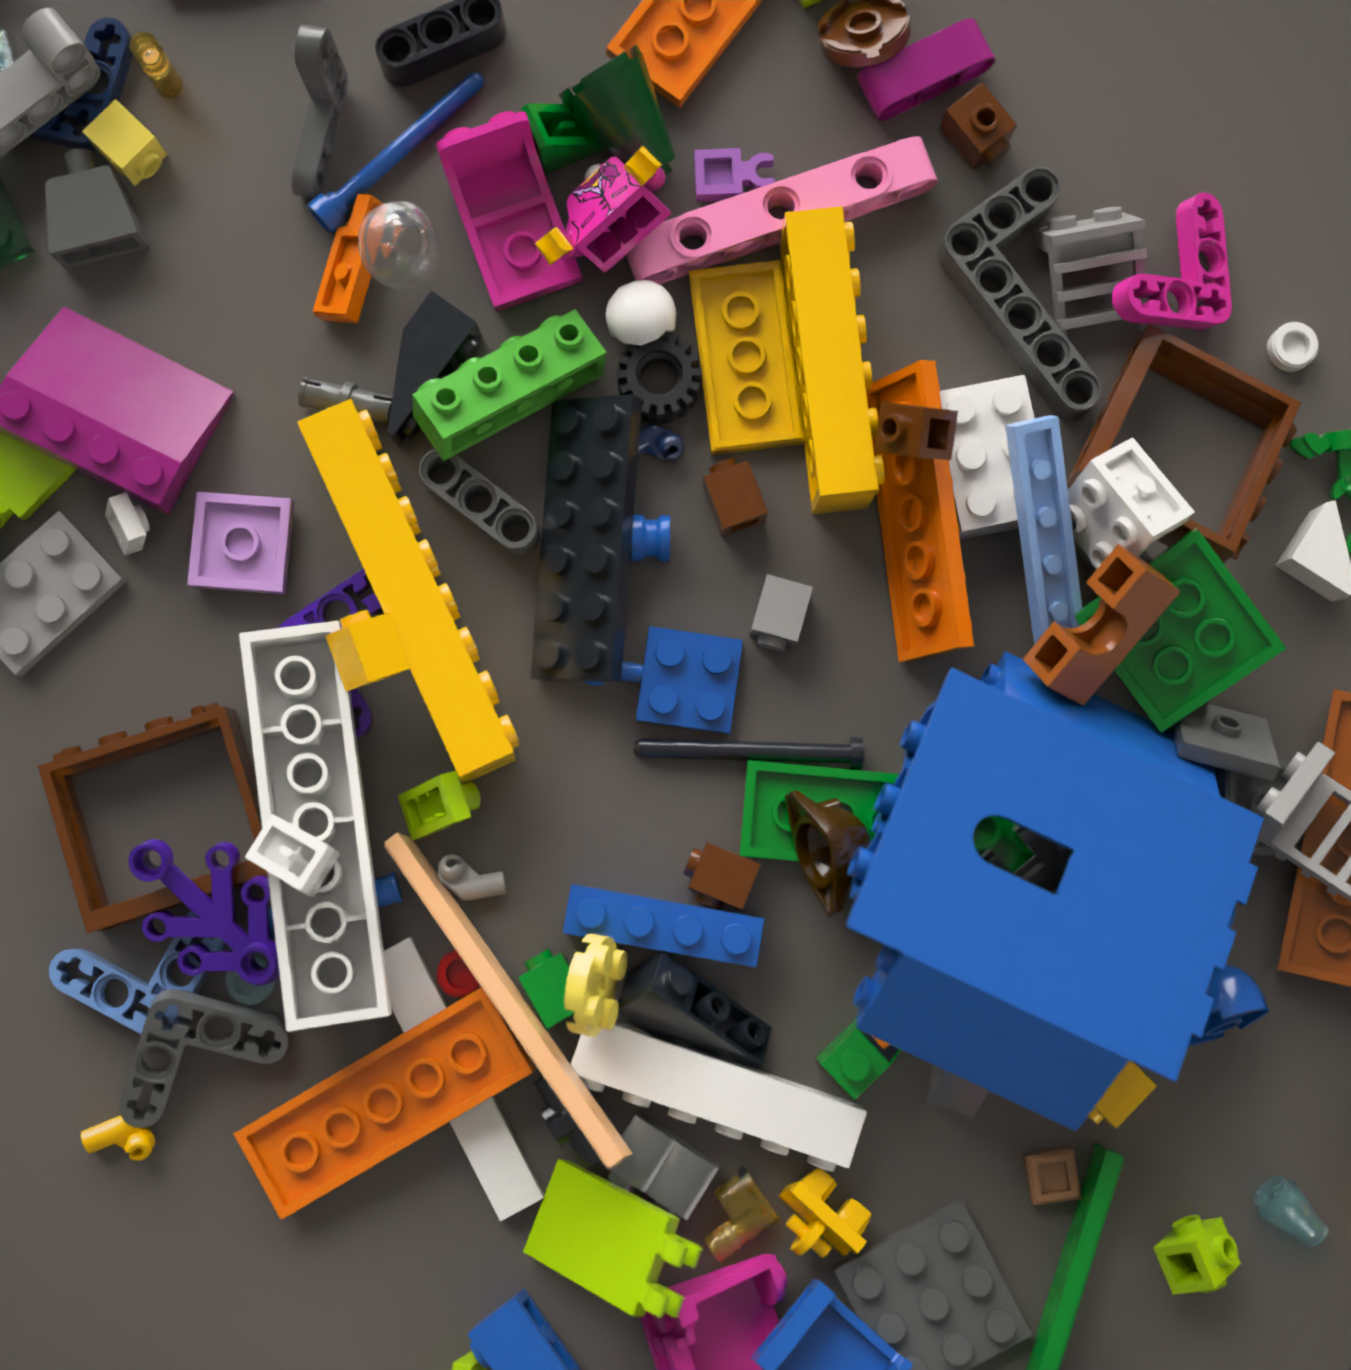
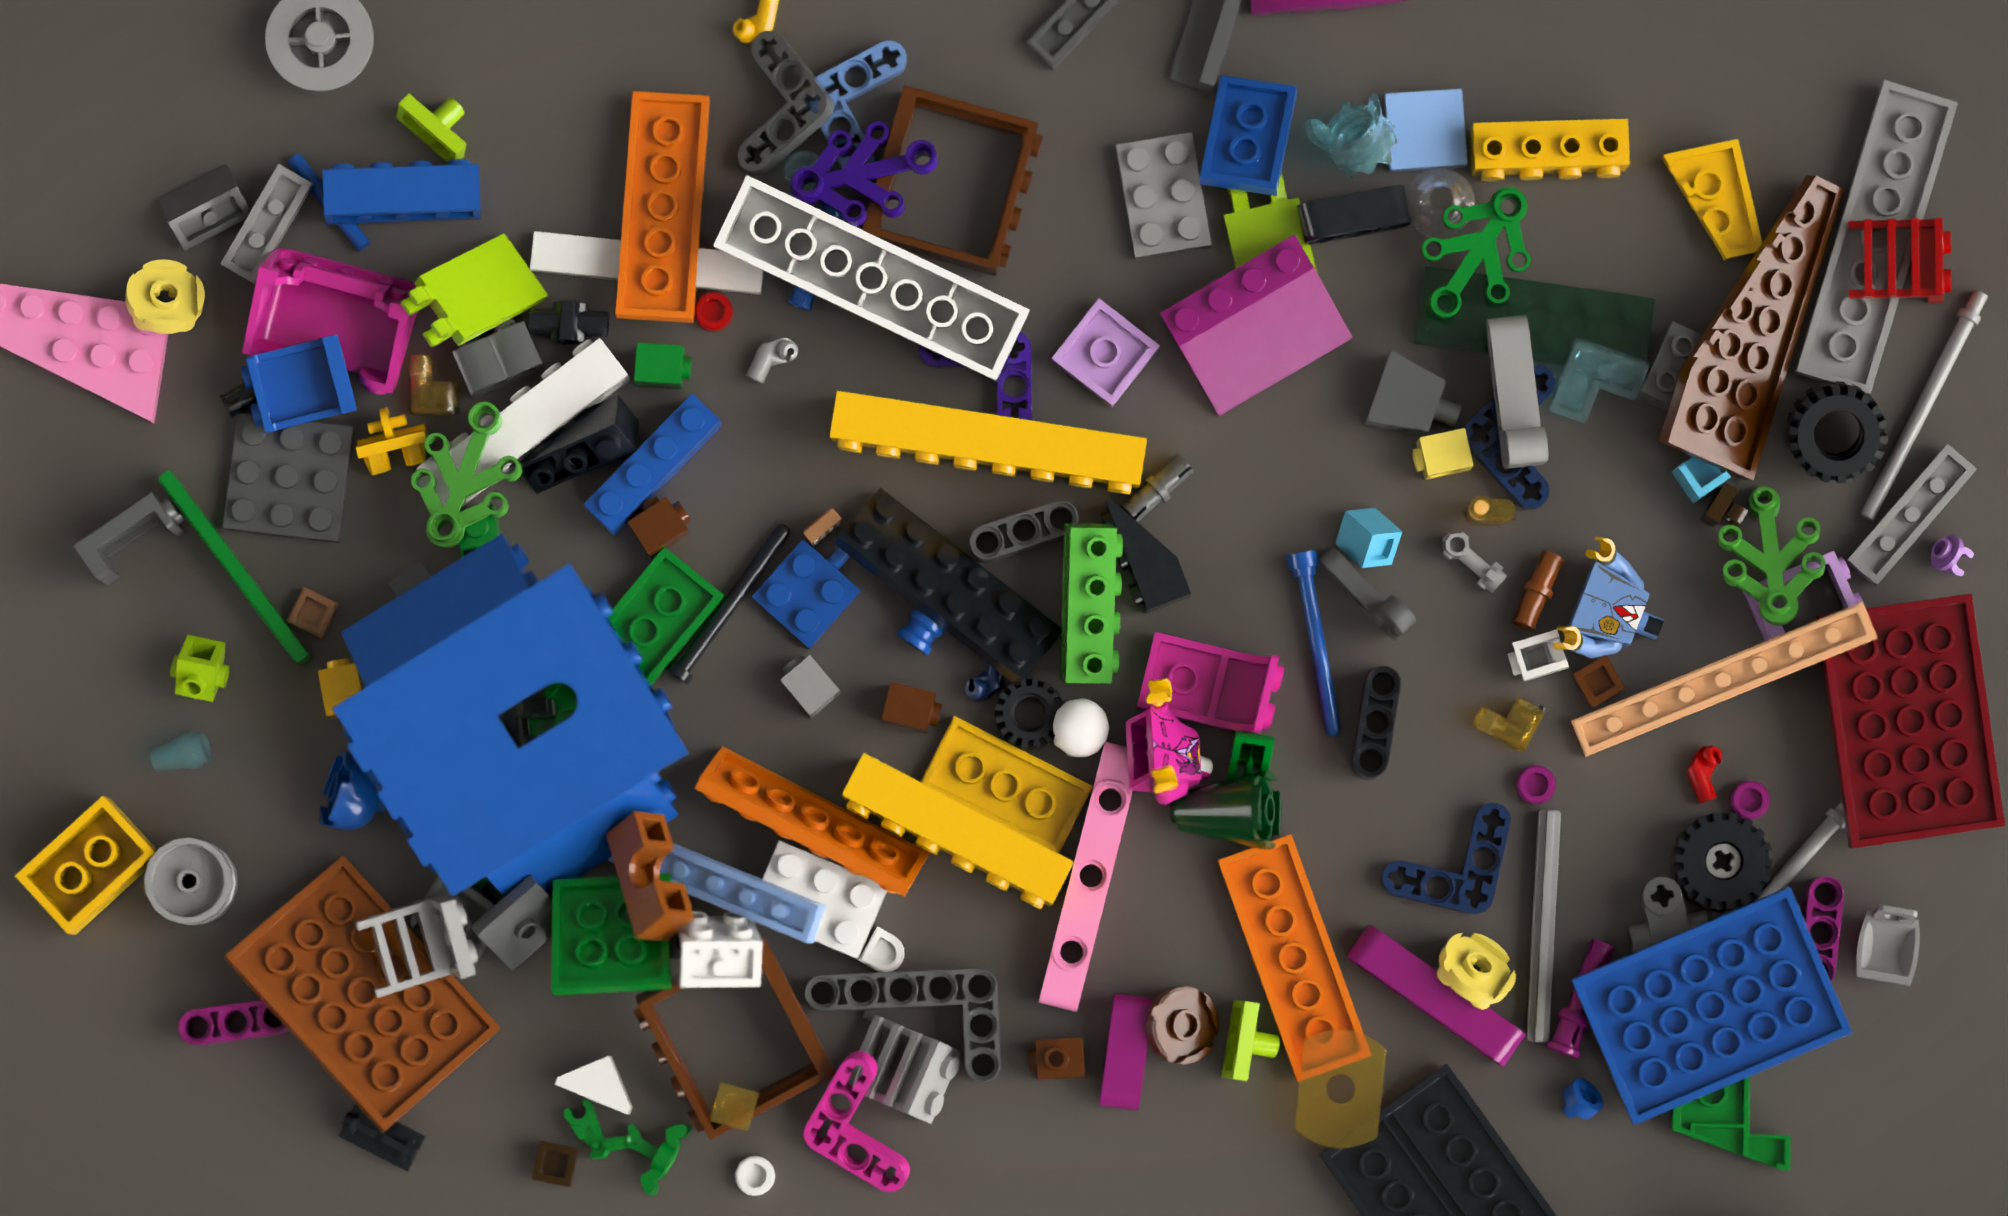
camera: 125 degrees right, 0 degrees up
(127, 523) = (1169, 284): white plate -> none
(210, 69) = (1457, 547): none -> light grey bar
(259, 164) = (1368, 537): none -> medium azure panel
(292, 855) = (856, 250): white slope -> none
(345, 276) = (1253, 555): orange hinge -> none
(366, 649) = (961, 385): yellow brick -> none
(382, 247) = (1253, 588): clear piece -> none
(438, 804) = (833, 367): lime tile -> none
(508, 1001) = (675, 329): light nougat tile -> none
(593, 985) = (643, 389): light yellow plate -> none
(610, 707) = (822, 527): none -> medium nougat tile
(723, 174) = (1146, 856): medium lavender plate -> none
(819, 1111) = (464, 482): none -> bright green plant
(825, 844) = (635, 606): dark brown hat -> none
(916, 431) = (862, 843): reddish brown brick -> none
(990, 362) = (883, 952): none -> white tile
(1258, 394) = (734, 1106): none -> clear yellow plate

